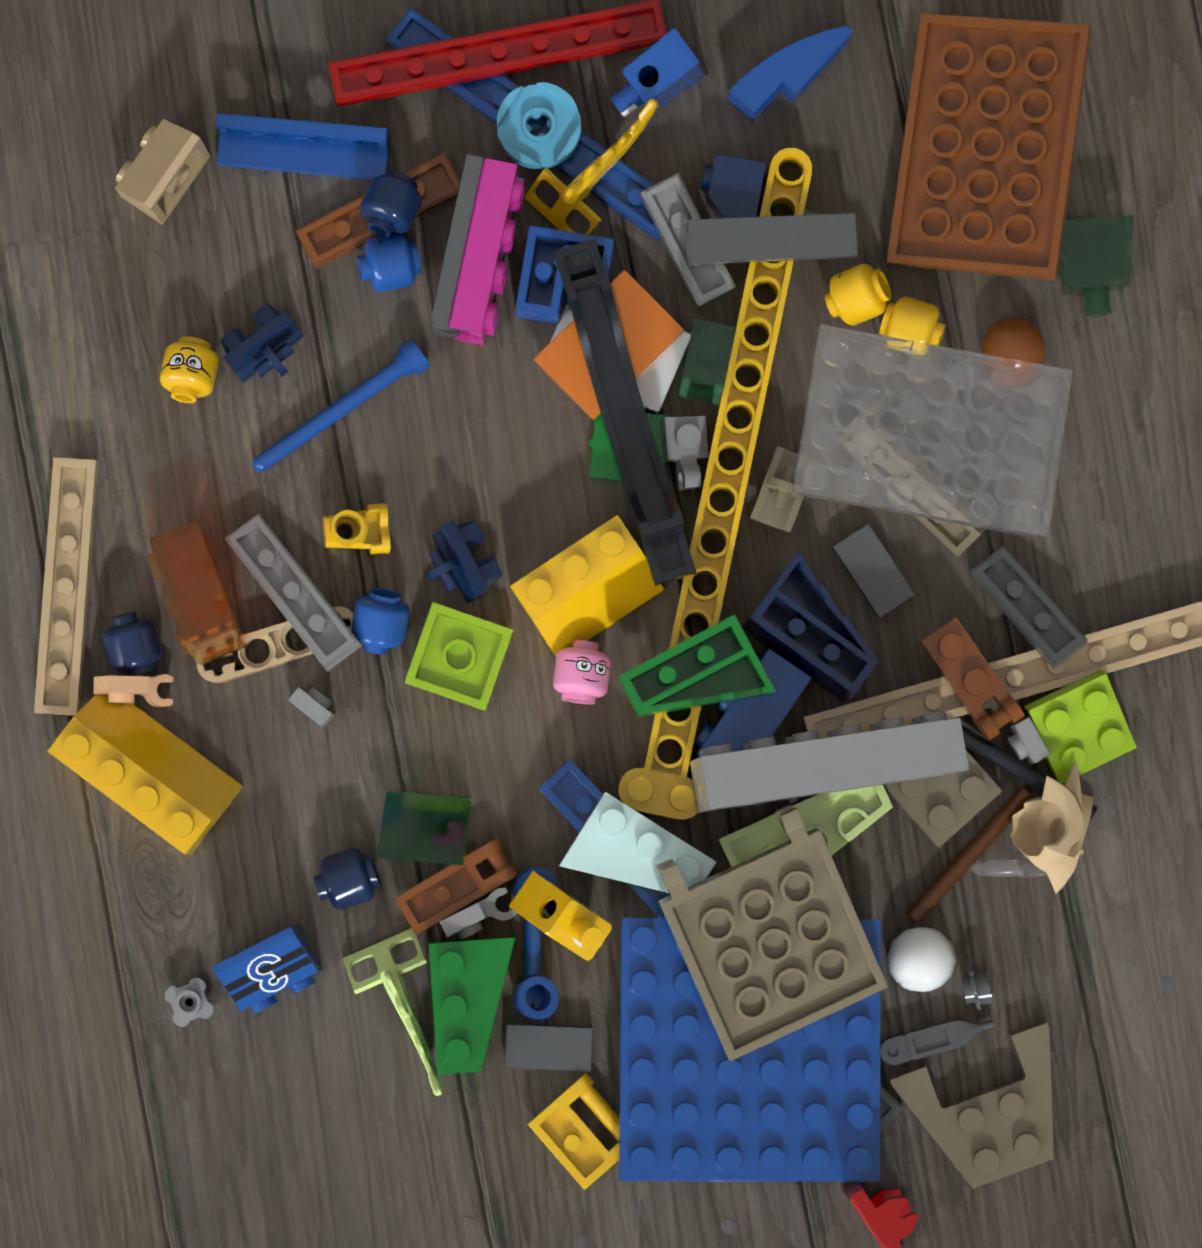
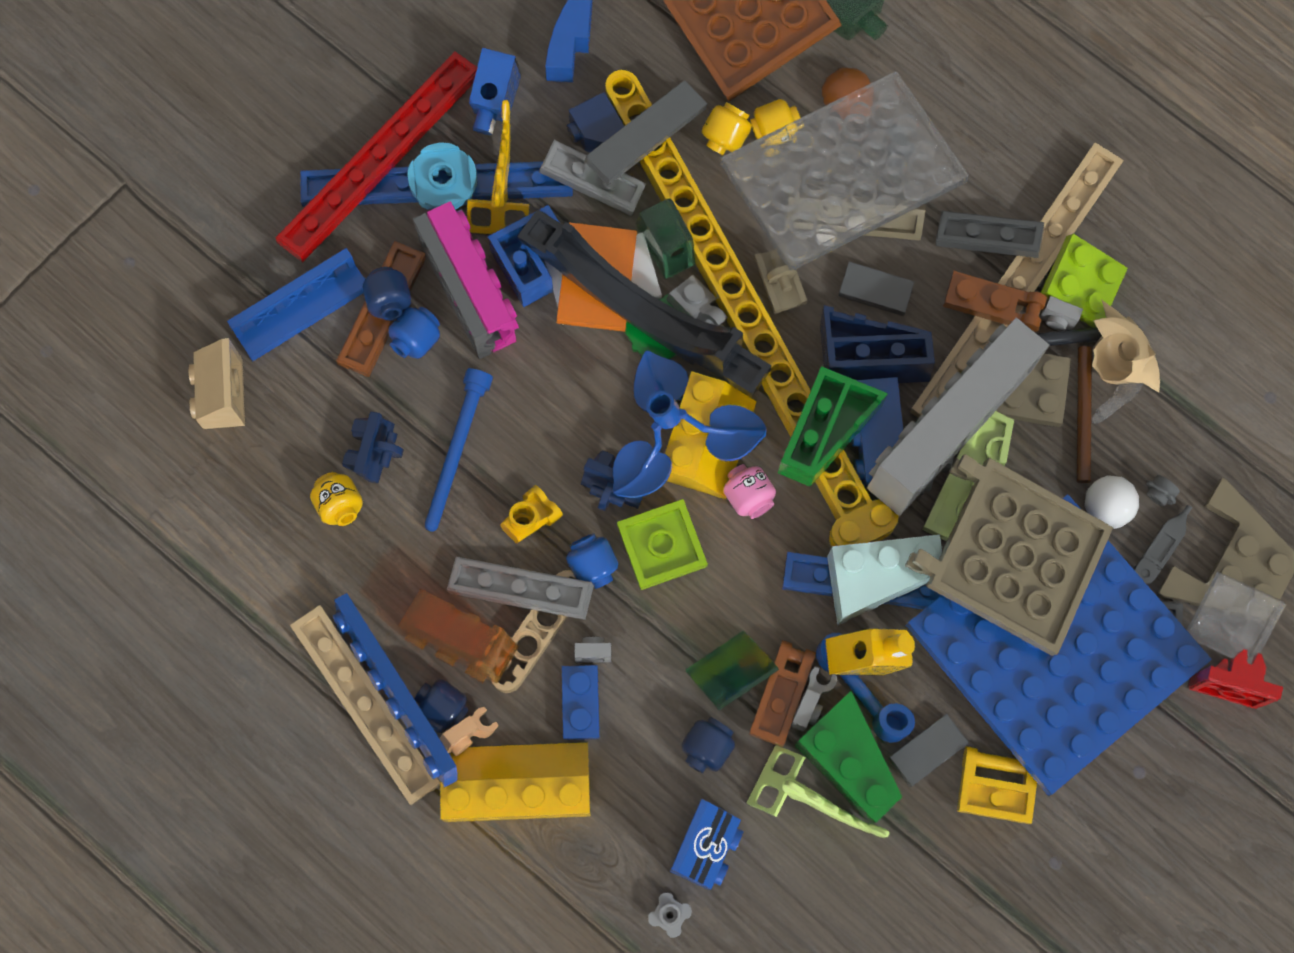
camera: 40 degrees left, 10 degrees down
(93, 615) = (400, 701): none -> blue plate
(265, 743) = (580, 702): none -> blue plate
(582, 499) = (657, 389): none -> blue plant
(936, 1162) = (1235, 617): none -> clear plate

